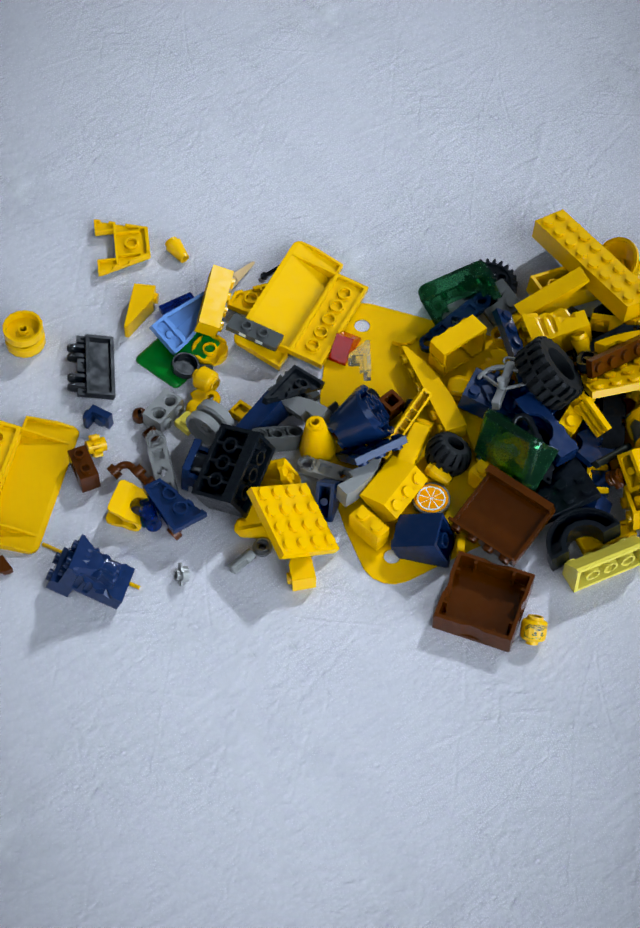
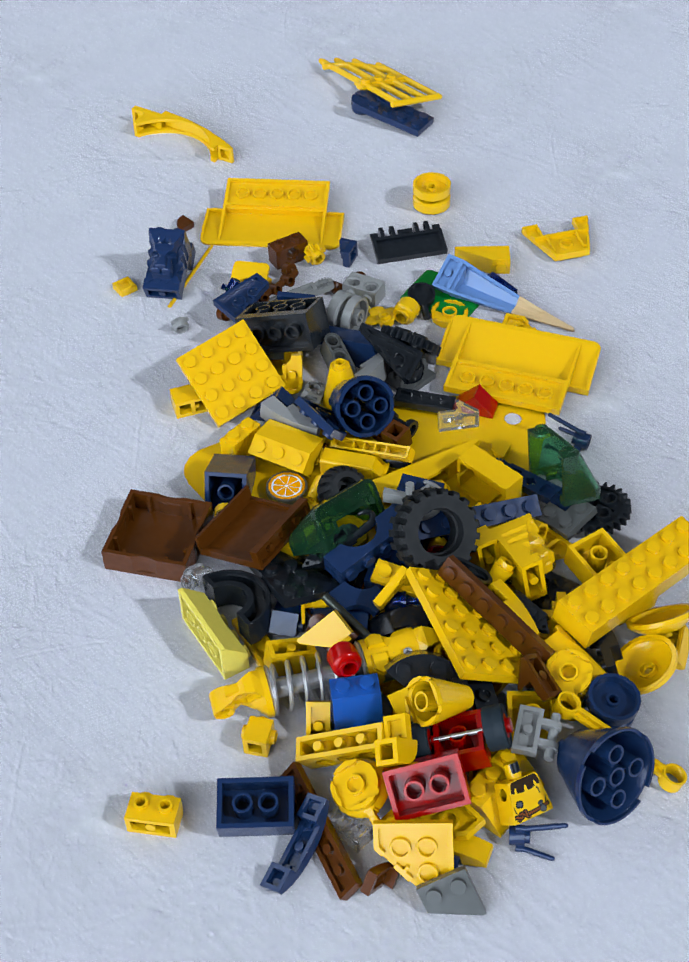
camera: 85 degrees right, 10 degrees down
(97, 627) = (124, 286): none -> yellow tile
(176, 248) = (570, 272): yellow cone -> none
(214, 301) = (501, 297): yellow brick -> none
(254, 332) = (464, 326): dark grey plate -> none
(268, 375) = (412, 339): none -> black gear
(335, 382) = (423, 400): none -> black plate
(403, 281) = (580, 437): none -> dark blue plant
(533, 629) = (123, 576): yellow head -> none
(542, 571) = (192, 577): none -> clear head
(555, 291) = (575, 544): yellow slope -> none

